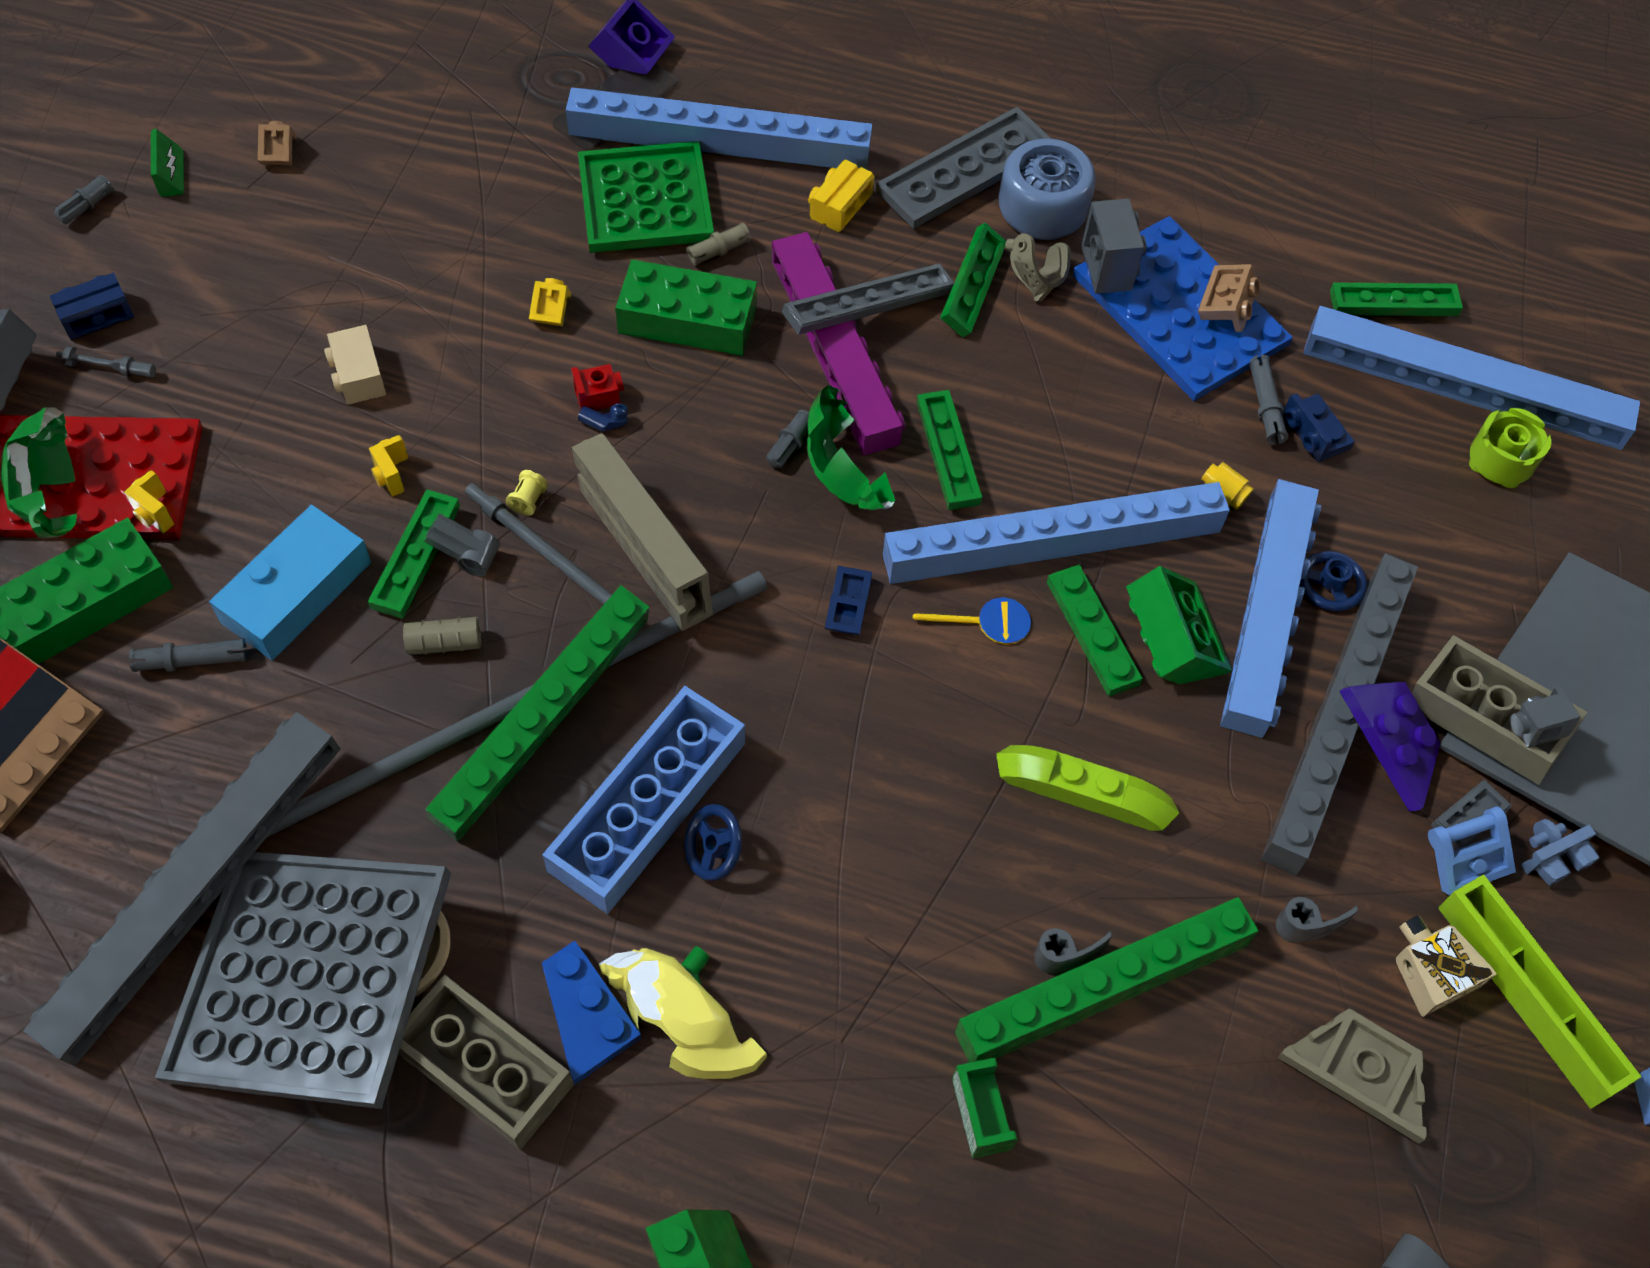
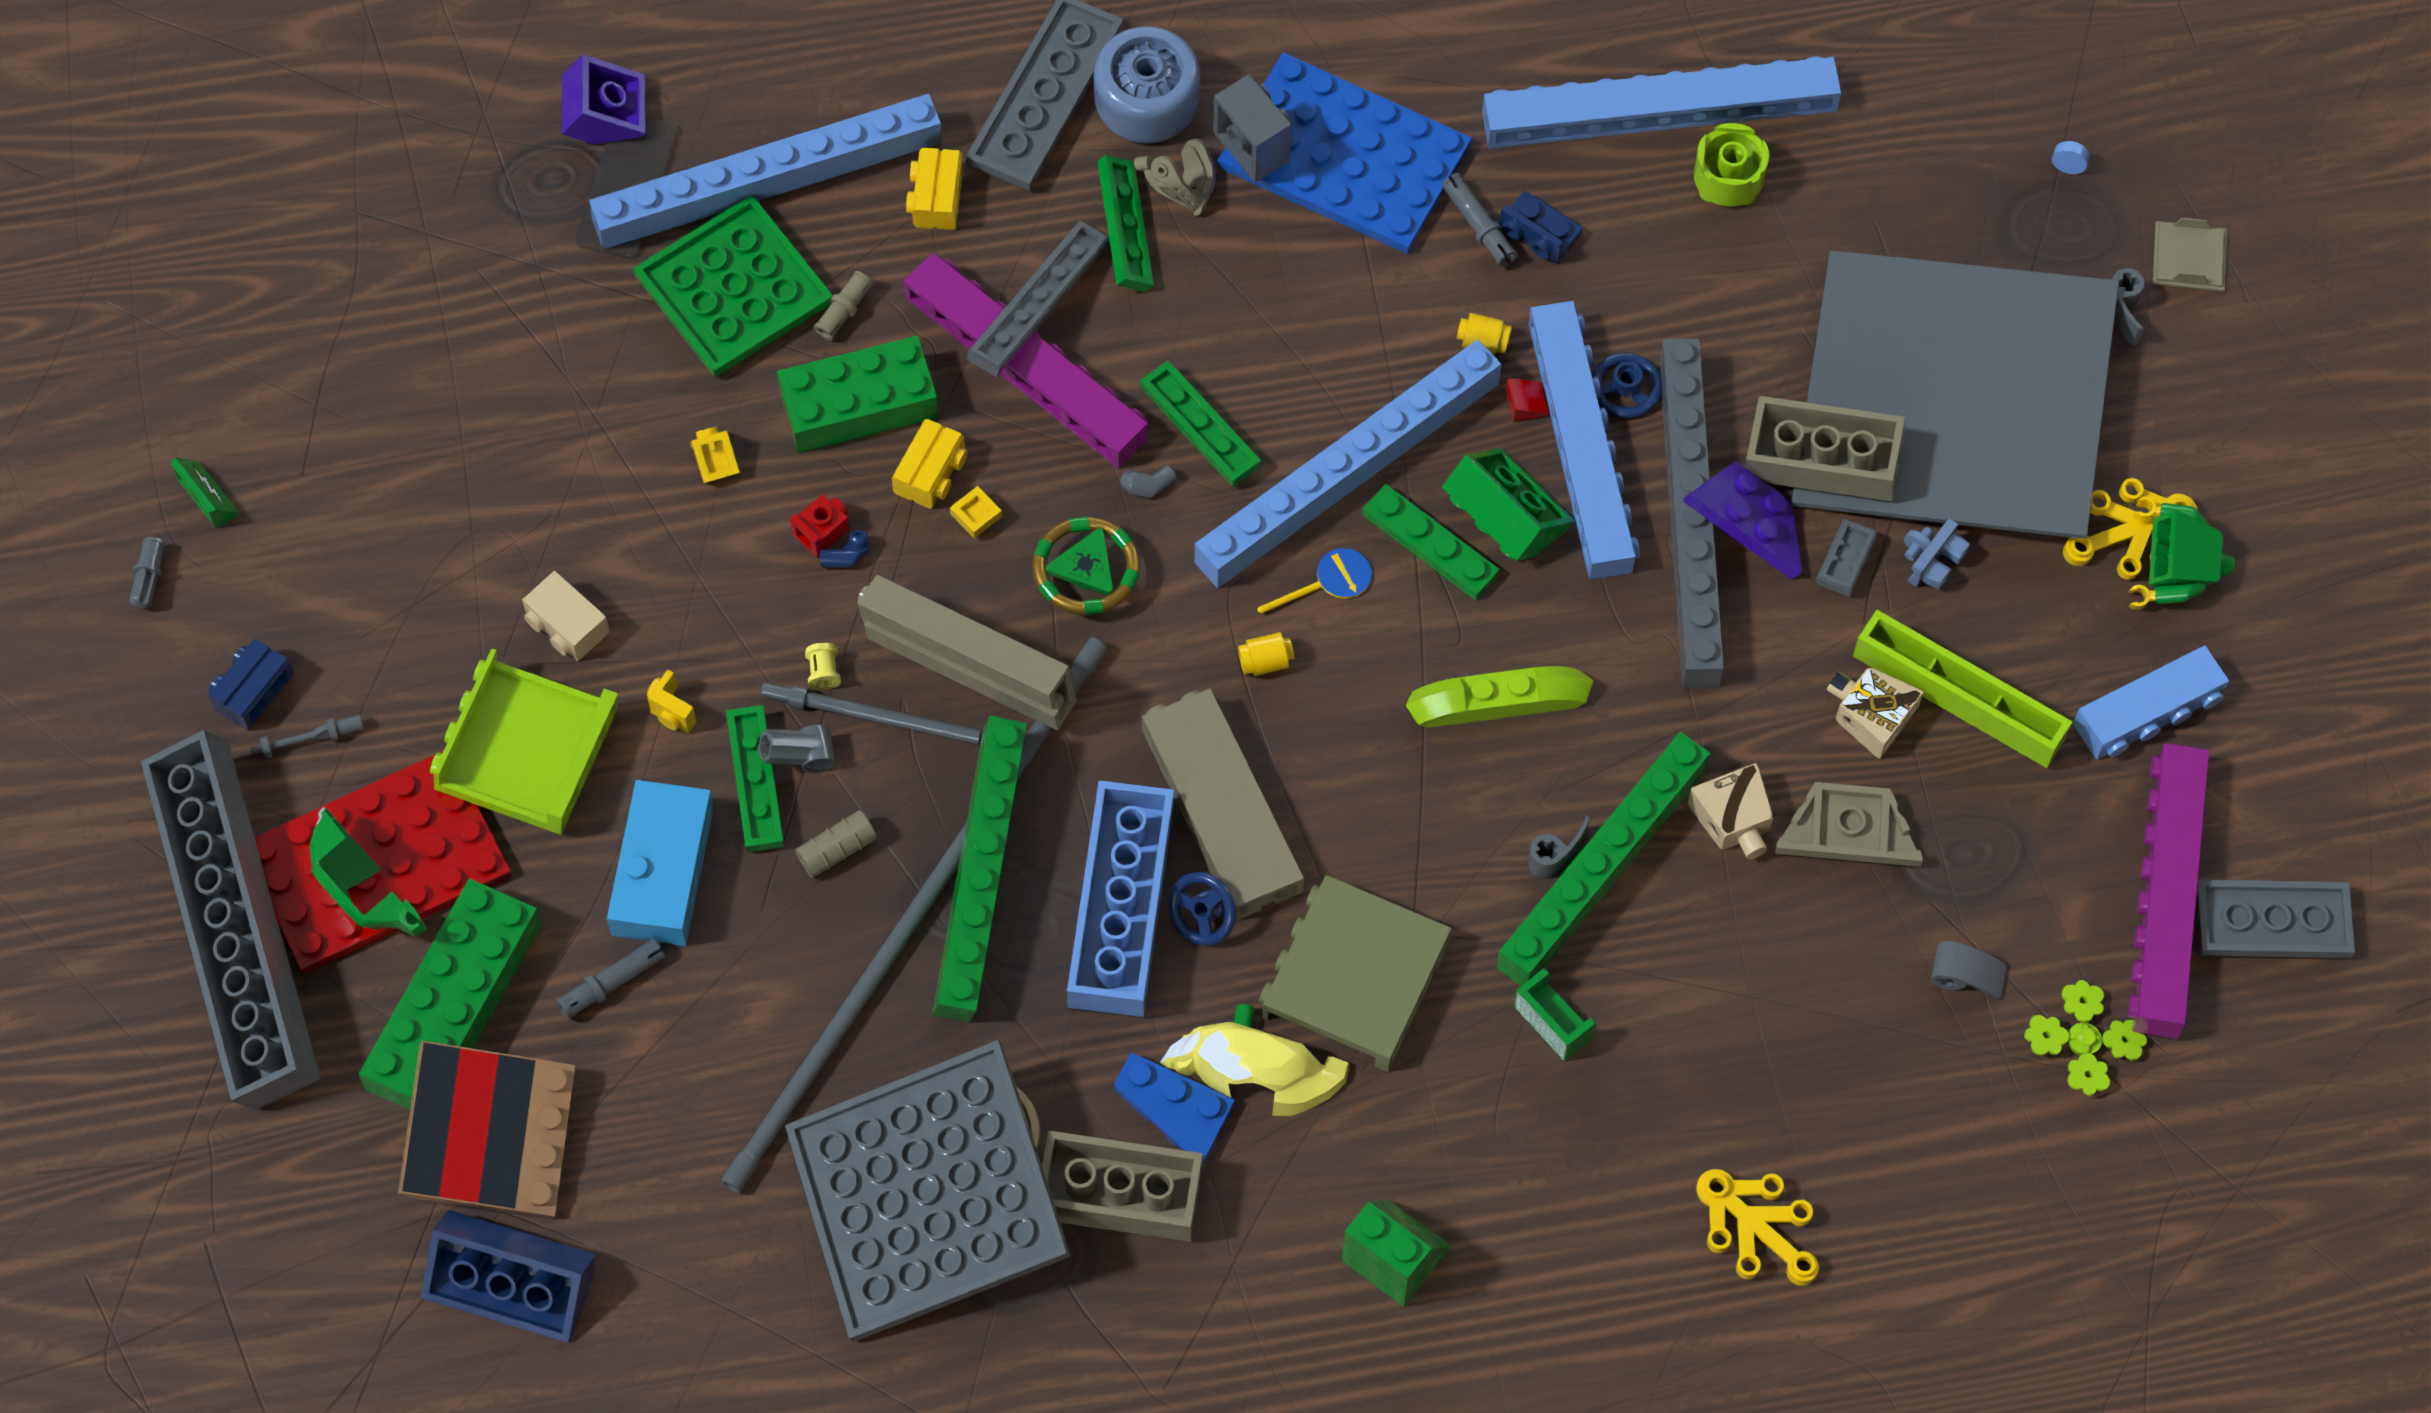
camera: 25 degrees left, 5 degrees up
(144, 499) = (477, 859): yellow bracket -> none
(181, 890) = (769, 1172): dark grey brick -> none
(251, 440) = (523, 744): none -> lime panel
(275, 143) = (304, 410): medium nougat bracket -> none
(710, 381) = (929, 464): none -> yellow brick
(725, 433) = (975, 512): none -> yellow plate
(785, 763) = (1222, 801): none -> dark tan brick
(786, 512) = (1085, 565): none -> piece
(789, 440) = (1041, 486): dark grey axle -> none
(820, 970) = (1356, 969): none -> olive panel
(834, 467) = (1112, 503): green animal -> none
(848, 600) = (1190, 624): dark blue slope -> none
(873, 471) = (1145, 484): none -> dark grey arm
(897, 653) = (1265, 654): none -> yellow brick
(1230, 294) = (1391, 124): medium nougat bracket -> none
(1237, 553) = (1526, 399): none -> red slope
(1257, 997) = (1734, 810): none -> tan torso
(1308, 913) = (1745, 716): dark grey panel -> none
(1396, 299) = (1552, 44): green plate -> none
(1487, 857) = (1874, 592): medium blue plate -> none
(1545, 718) = (1869, 444): dark grey brick -> none

